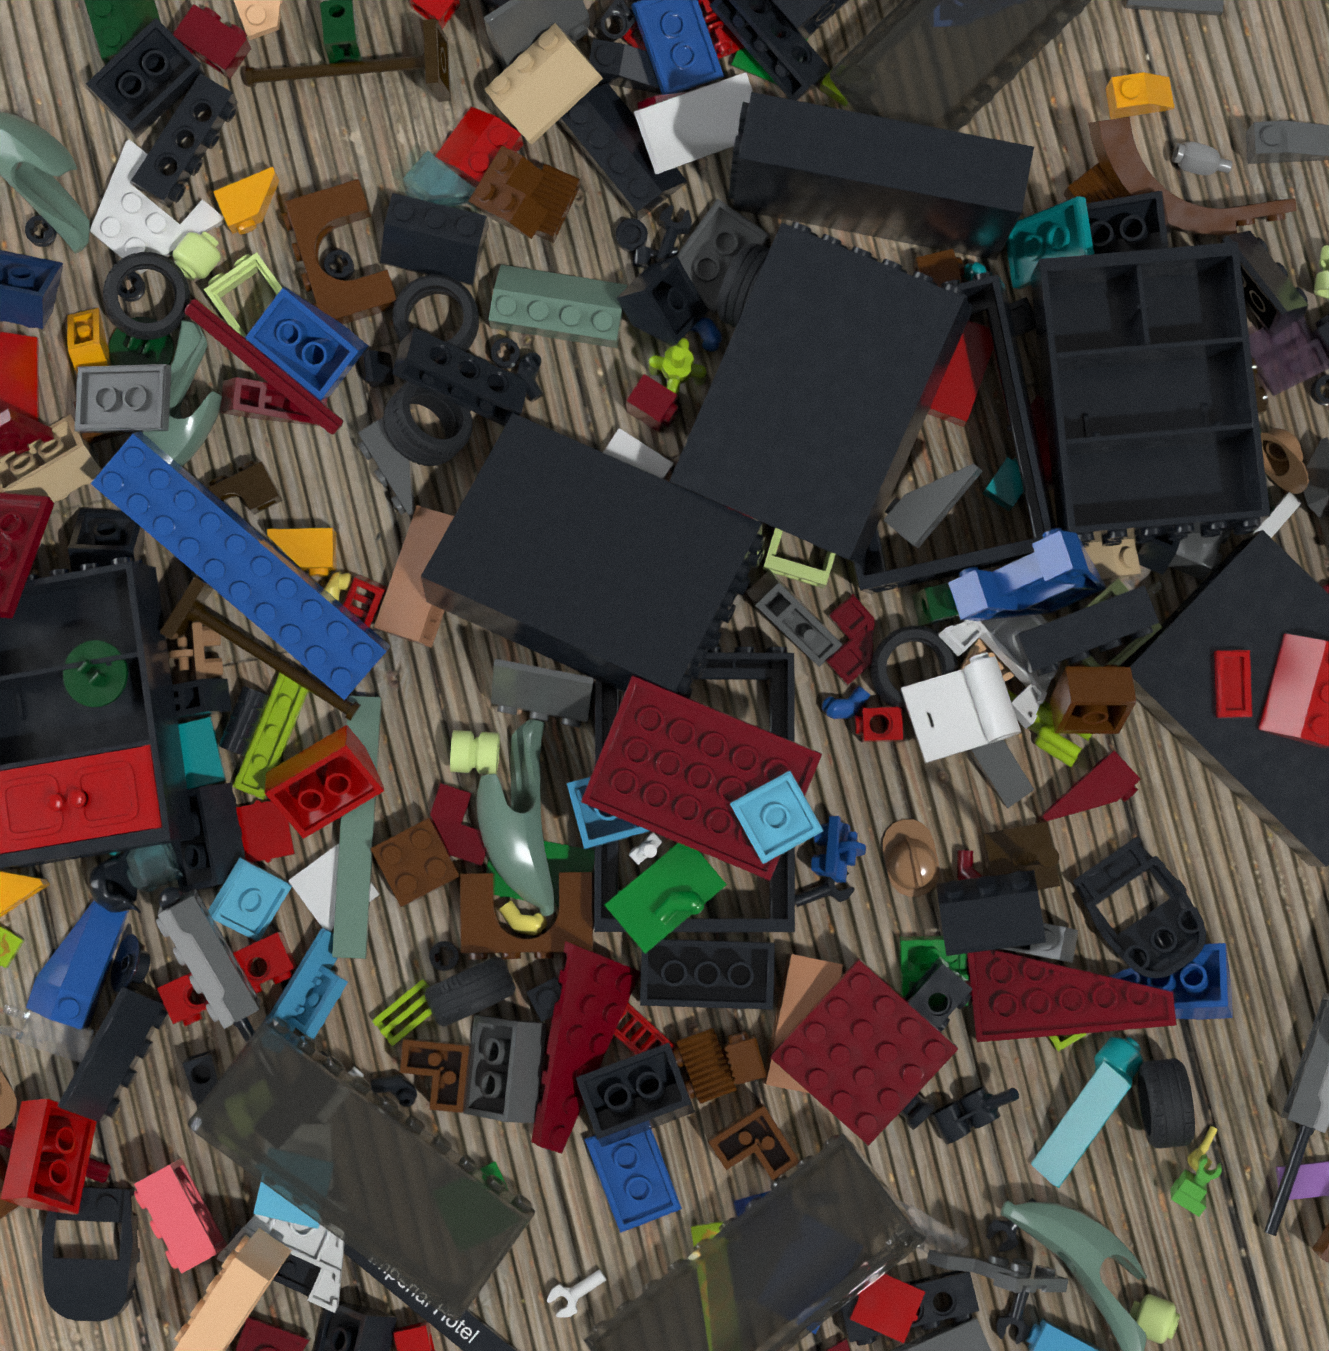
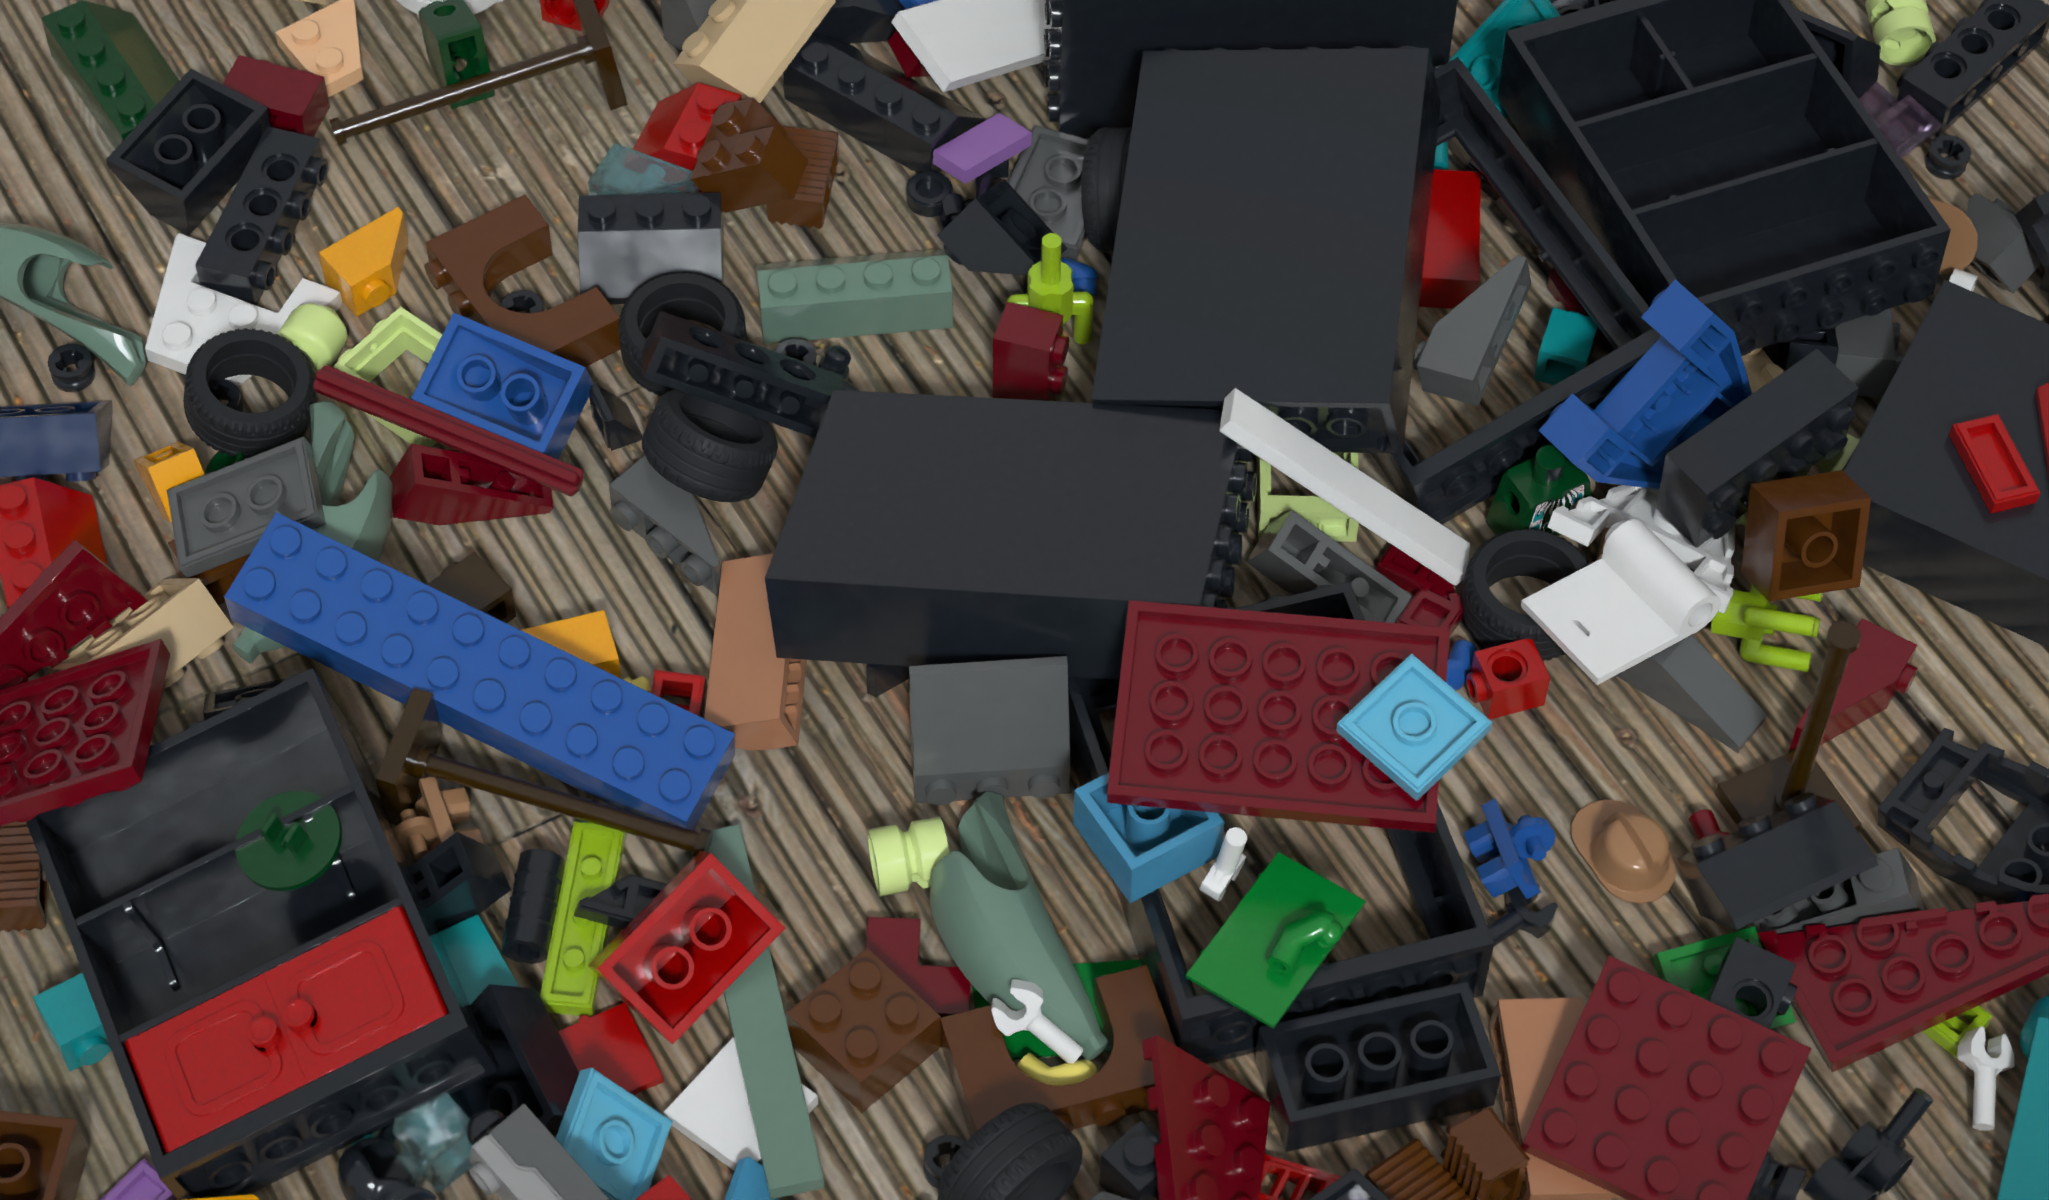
camera: 15 degrees left, 30 degrees down
(299, 734) = (620, 902): none -> black tile
(509, 888) = (1032, 1019): none -> white bar
(674, 215) = (982, 148): none -> medium lavender tile
(813, 581) = (1344, 486): none -> white tile
(1067, 1068) = (1985, 1068): none -> white bar

